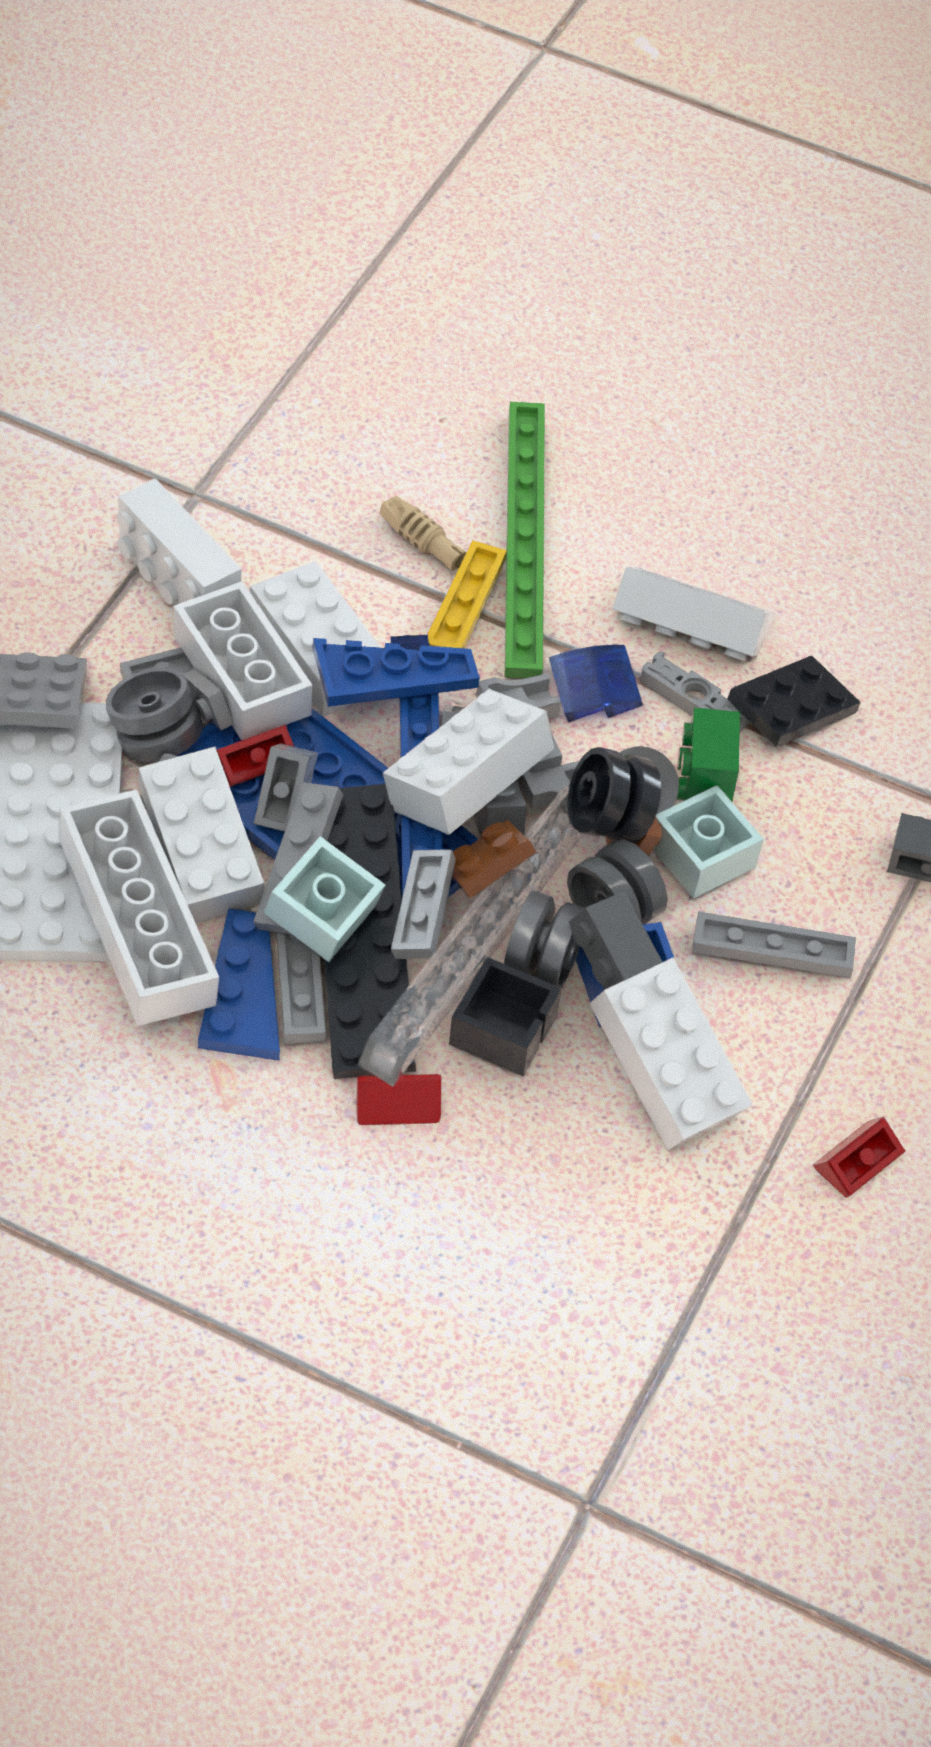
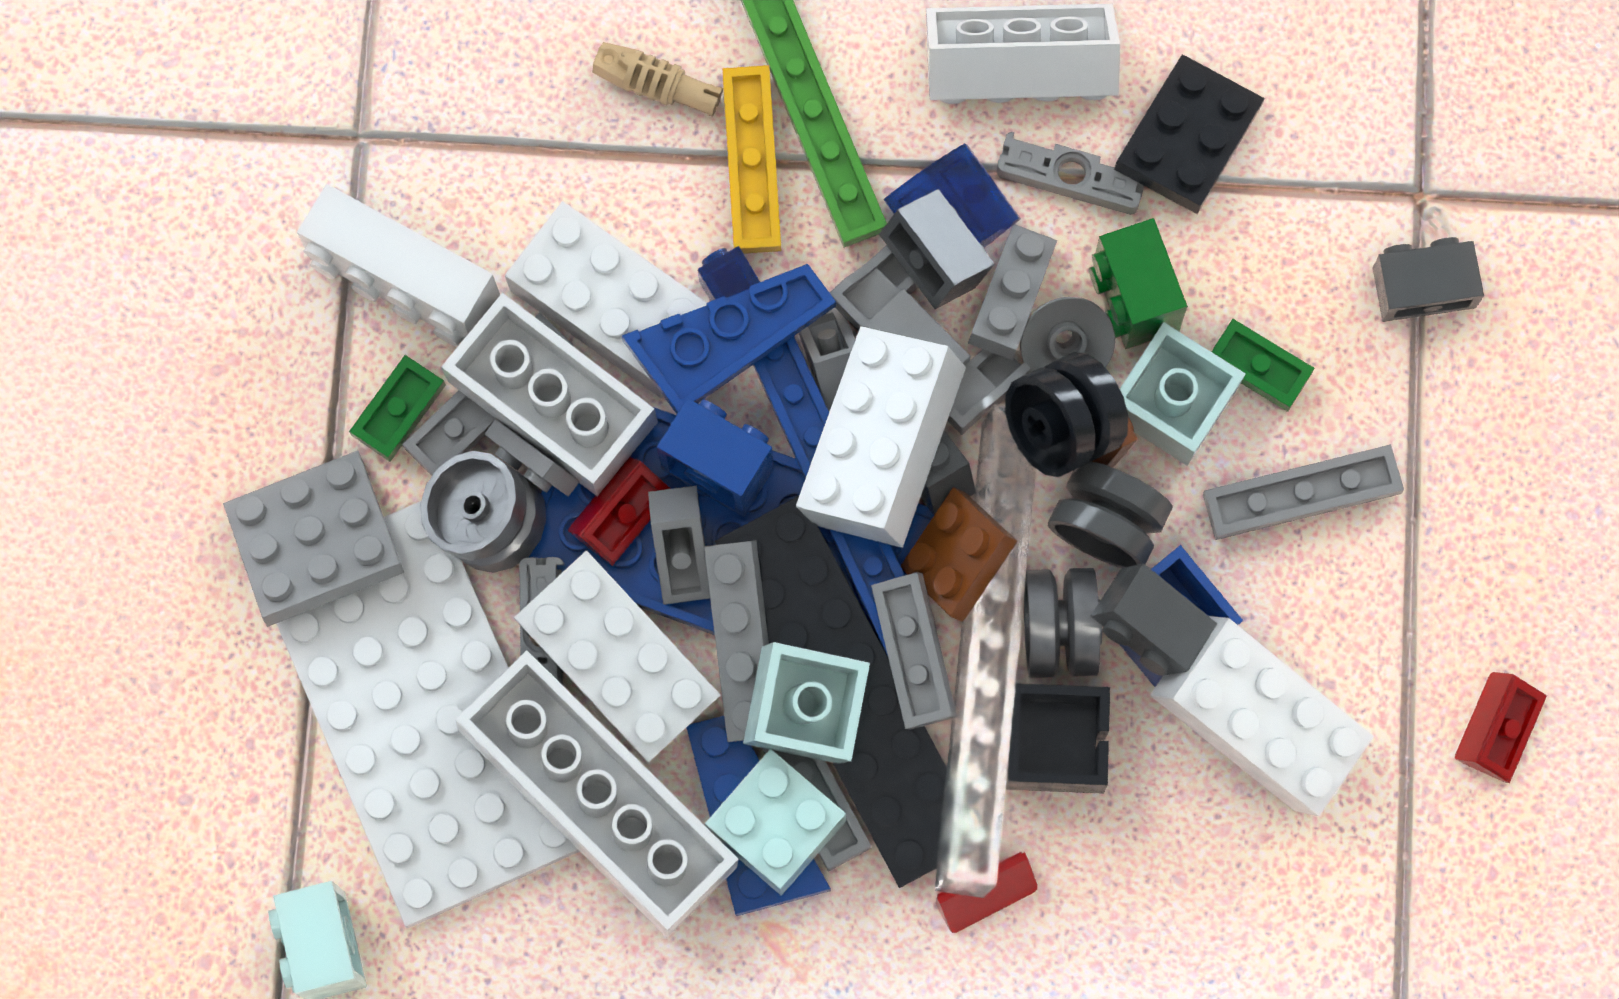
camera: 15 degrees left, 25 degrees up
(129, 643) = (397, 408): none -> green plate
(262, 978) = (776, 821): none -> light aqua brick
(342, 734) = (716, 455): none -> blue brick
(570, 685) = (936, 248): none -> brick
(622, 731) = (1012, 292): none -> light grey plate
(784, 858) = (1266, 366): none -> green plate

